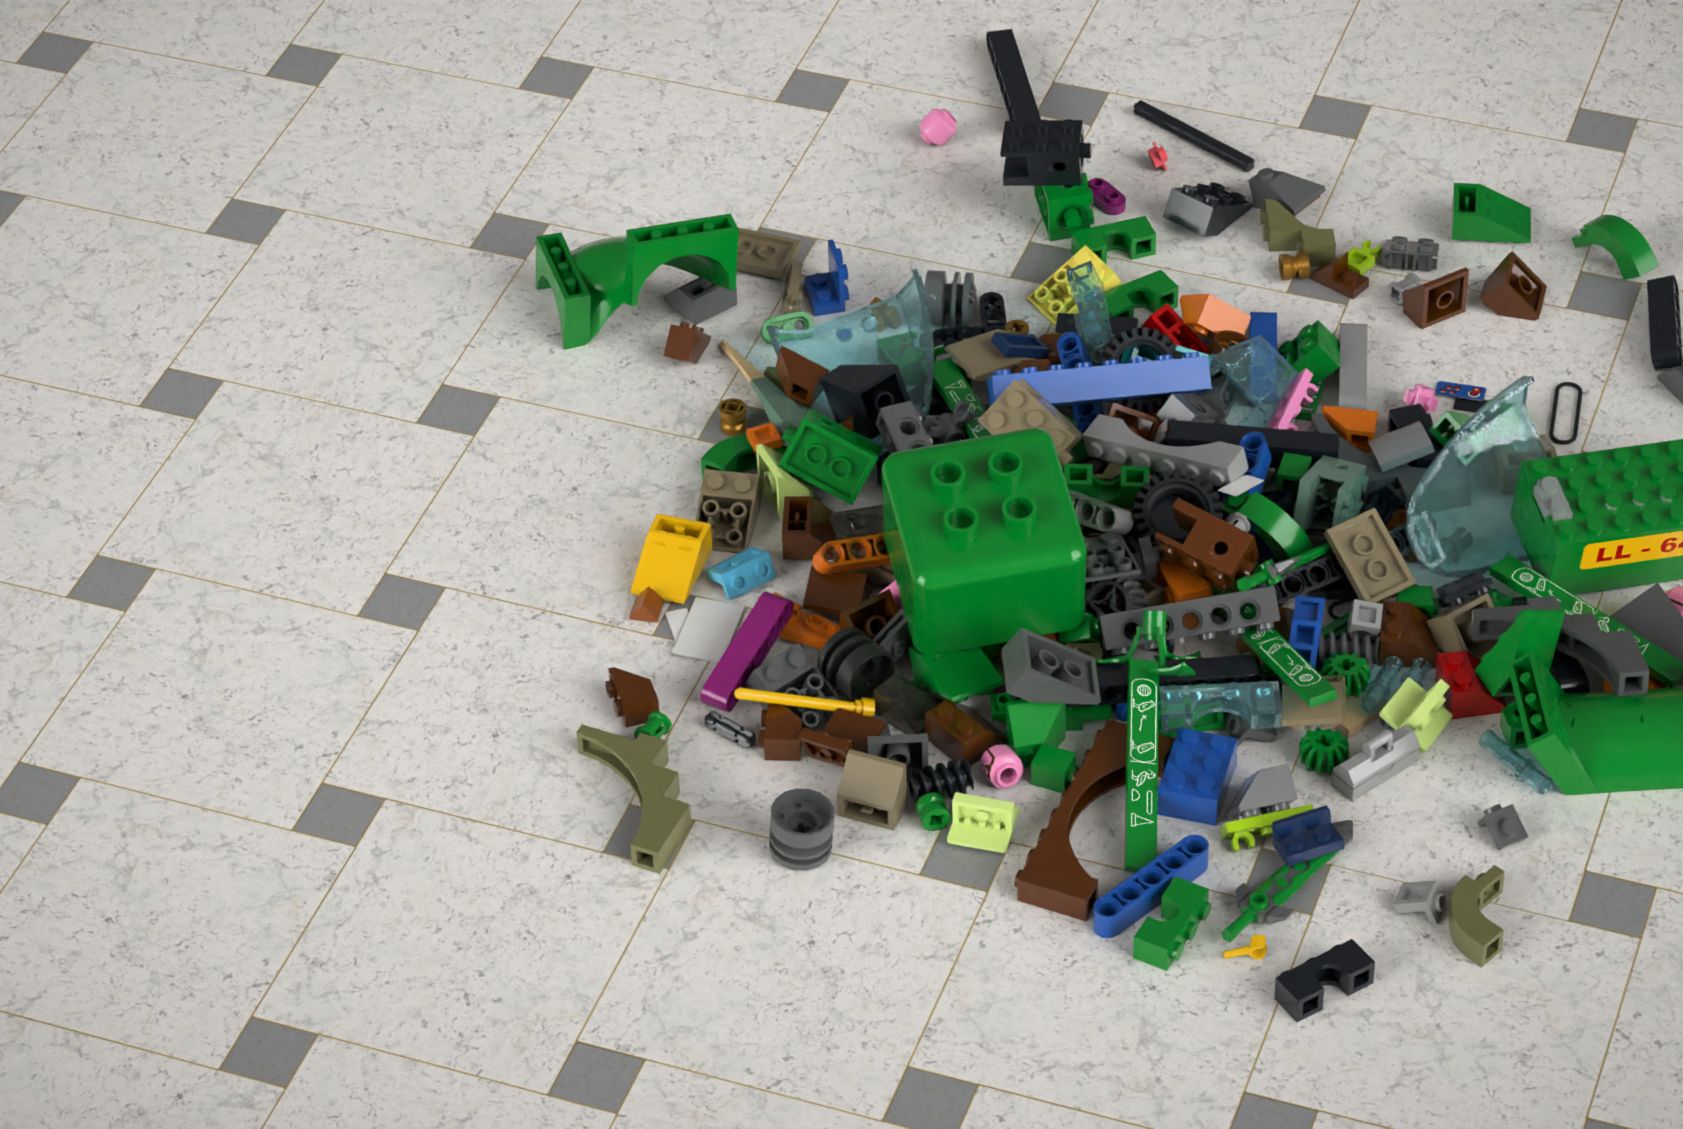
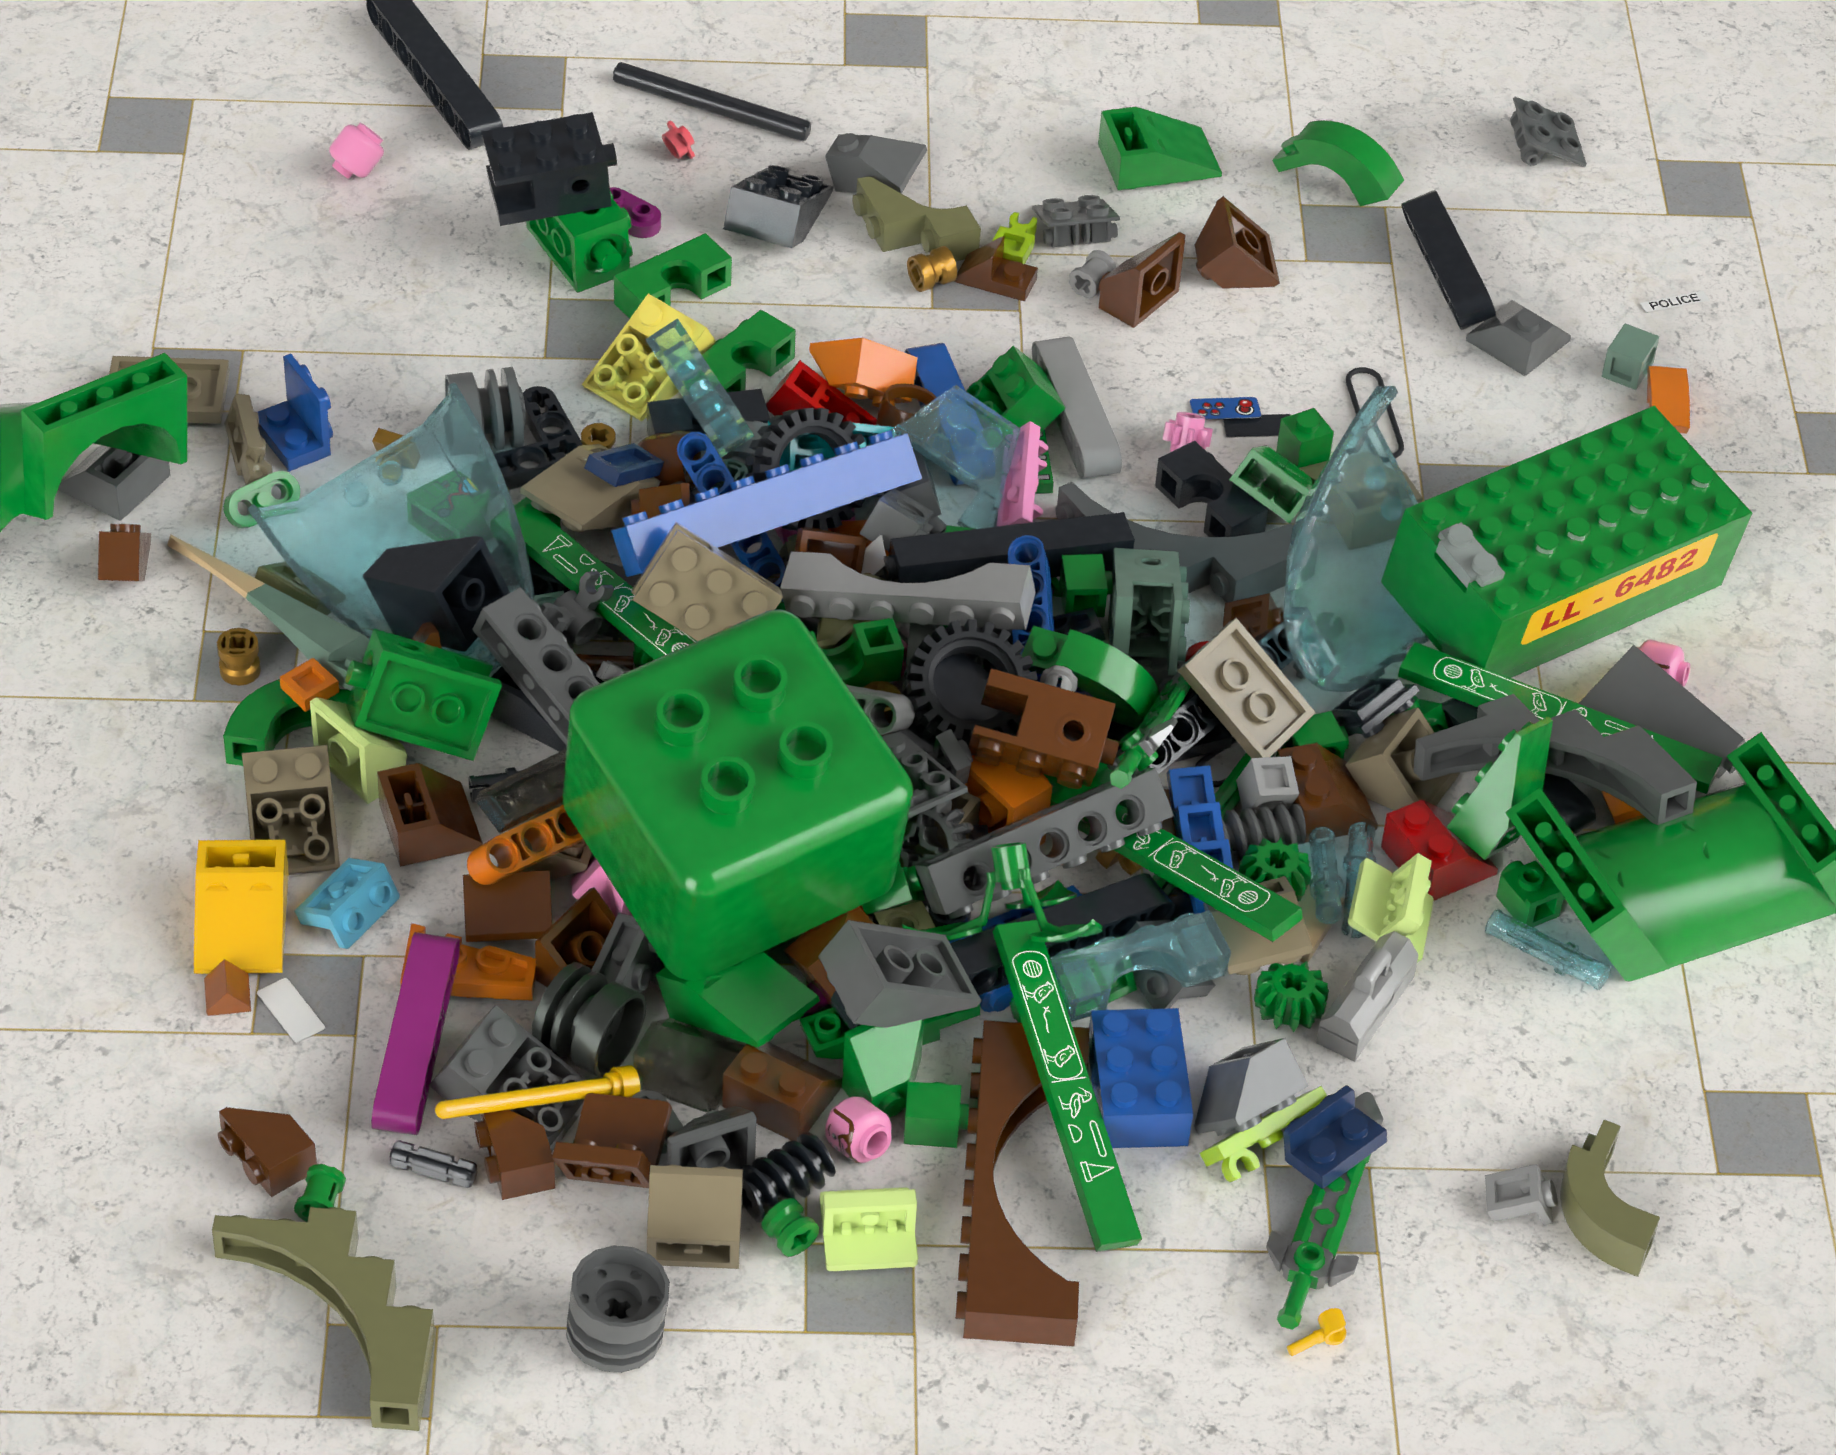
camera: 25 degrees left, 5 degrees up
(708, 629) = (333, 1006): white sticker -> none
(799, 376) = (325, 576): reddish brown slope -> none
(1145, 888) = (1160, 1248): blue beam -> none
(1163, 941) = (1199, 1352): green arch -> none
(1240, 485) = (1040, 622): white sticker -> none
(1343, 966) = (1465, 1329): black arch -> none
(1353, 425) = (1117, 489): orange slope -> none
(1385, 501) = (1206, 597): black bracket -> none
(1401, 446) = (1201, 510): light grey slope -> none
(1503, 825) = (1577, 1051): dark grey bracket -> none

